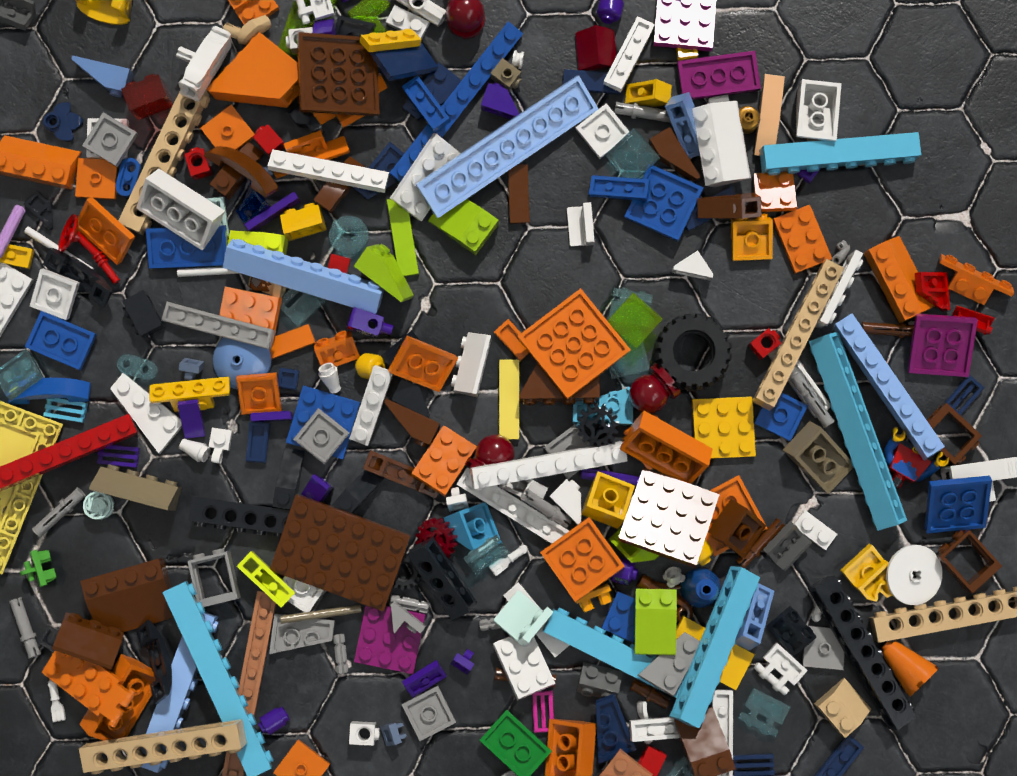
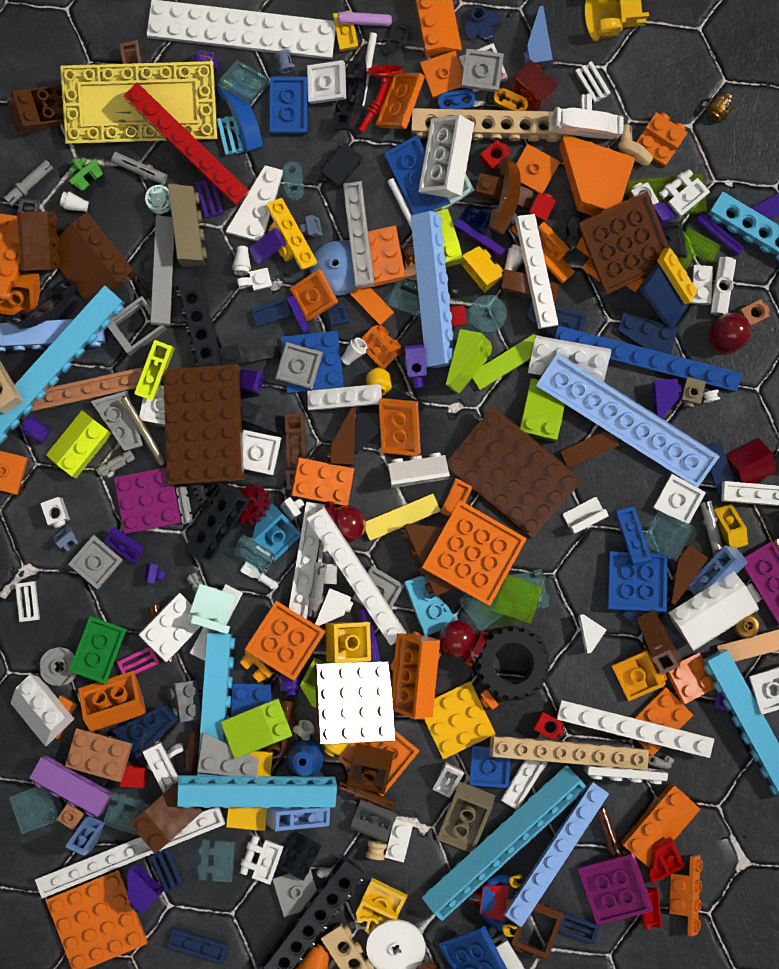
camera: 65 degrees right, 0 degrees up
(16, 326) = (285, 61): none -> sand blue bush
(64, 591) = (72, 202): none -> white cone
(148, 124) = (512, 97): none -> yellow beam
(162, 34) = (599, 79): none -> white tile
(171, 530) = (162, 271): none -> light grey tile
(305, 187) = (514, 258): none -> white cone
(306, 683) = (78, 444): none -> neon yellow slope
(389, 508) = (260, 452): none -> white plate
(400, 615) = (171, 501): light grey slope -> none
(426, 104) = (634, 331): blue plate -> none
(511, 274) = (513, 472): none -> reddish brown plate
(606, 427) = (411, 612): black gear -> none
(717, 390) = (487, 700): none -> orange plate
(776, 459) = (448, 779): none -> white slope
(800, 263) = (635, 728): none -> white plate
(811, 399) = (514, 790): light grey pin -> none
(815, 555) = (376, 850): none -> tan wheel
(843, 707) = (250, 931): tan slope -> none

